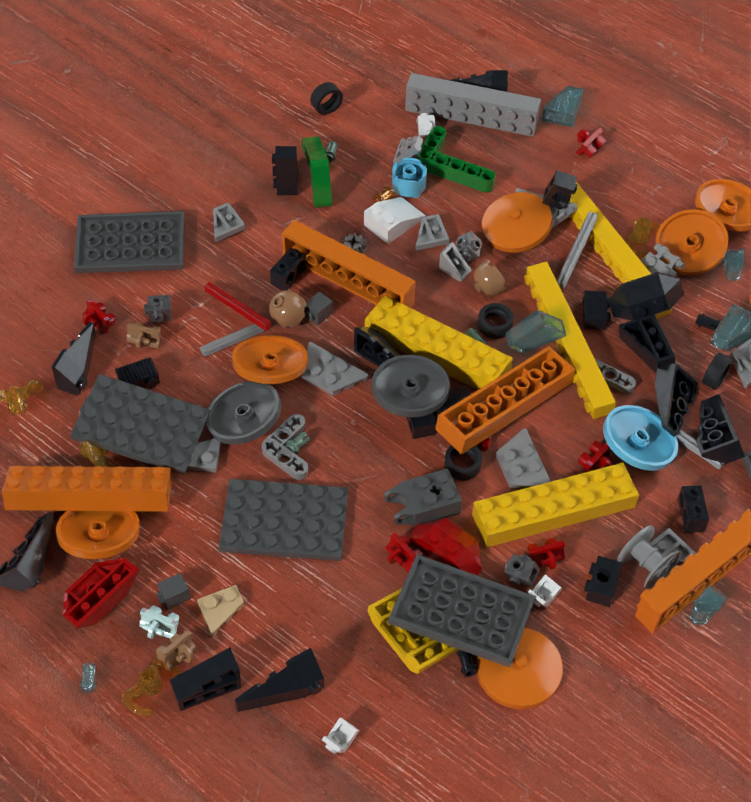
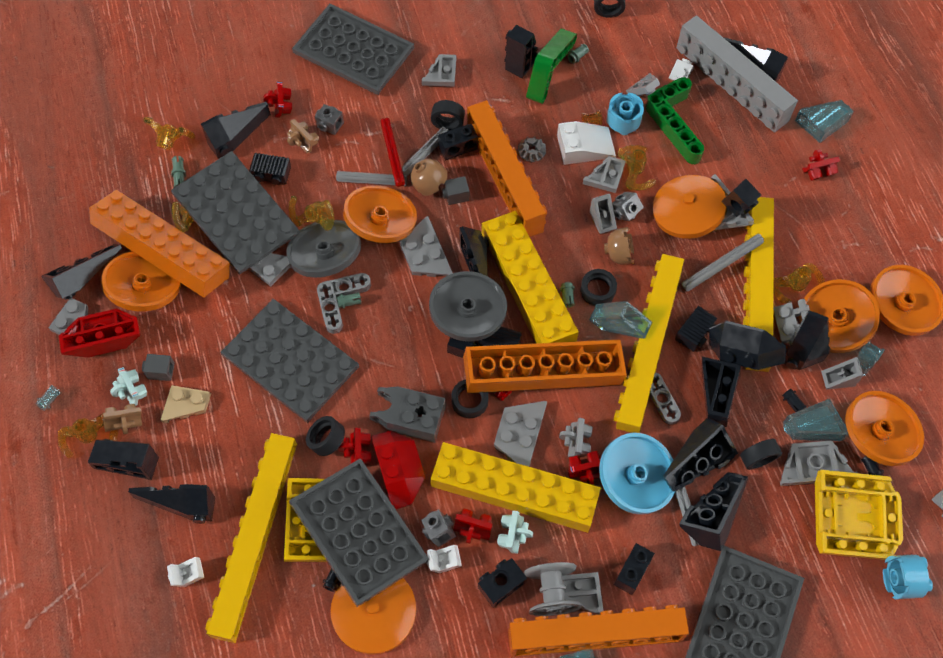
camera: 35 degrees right, 10 degrees up
(50, 602) = (68, 314): none -> light grey wing
(52, 425) = (178, 172): none -> sand green pin
(212, 388) = (316, 212): none -> clear yellow piece
(258, 245) = (447, 107): none -> black tyre
(263, 290) = (423, 152): none -> light grey axle
(360, 550) = (331, 442): none -> black tyre
(374, 676) = (252, 539): none -> yellow brick
(448, 212) = (636, 165): none -> clear yellow piece
(570, 440) = (574, 438): none -> light grey hips
(584, 547) = (517, 532): none -> light aqua hips
(690, 266) = (809, 342): none -> black wedge
(727, 282) = (843, 375): none -> light grey slope

